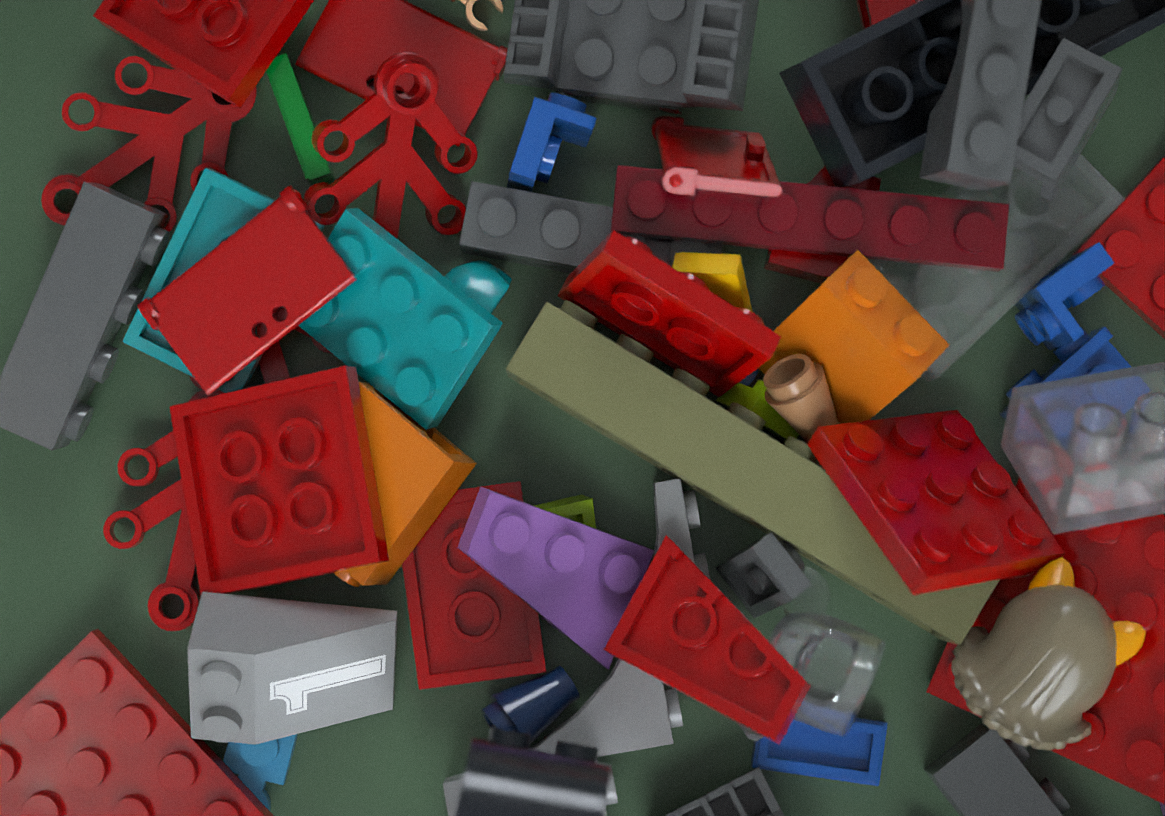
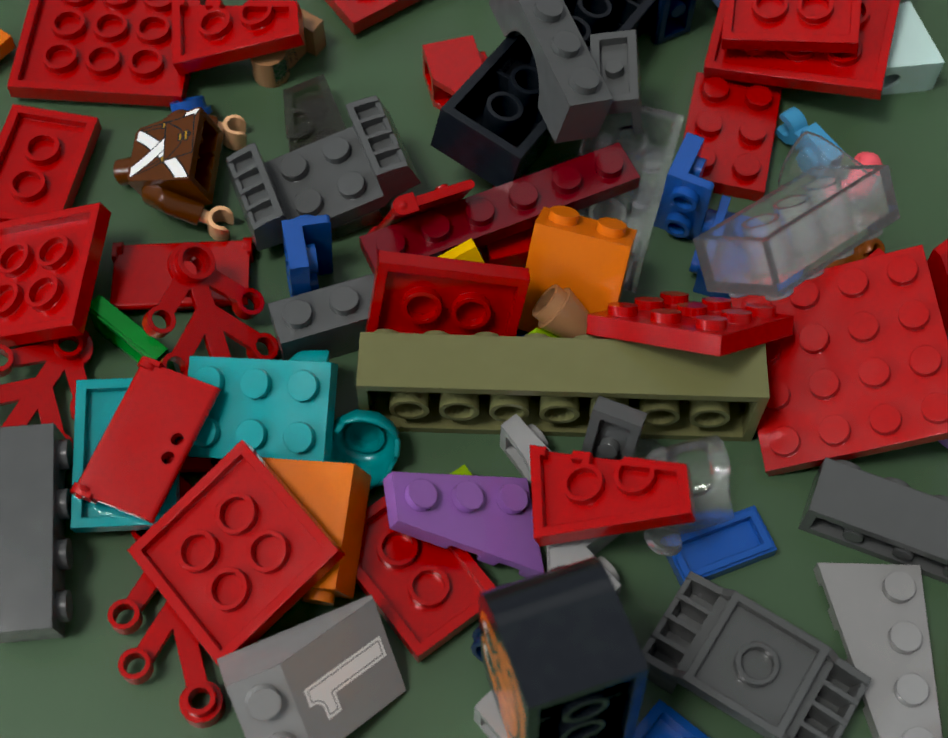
camera: 25 degrees left, 25 degrees down
(491, 418) = (368, 442): none -> teal hair
(1043, 661) = (830, 374): dark tan hair -> none

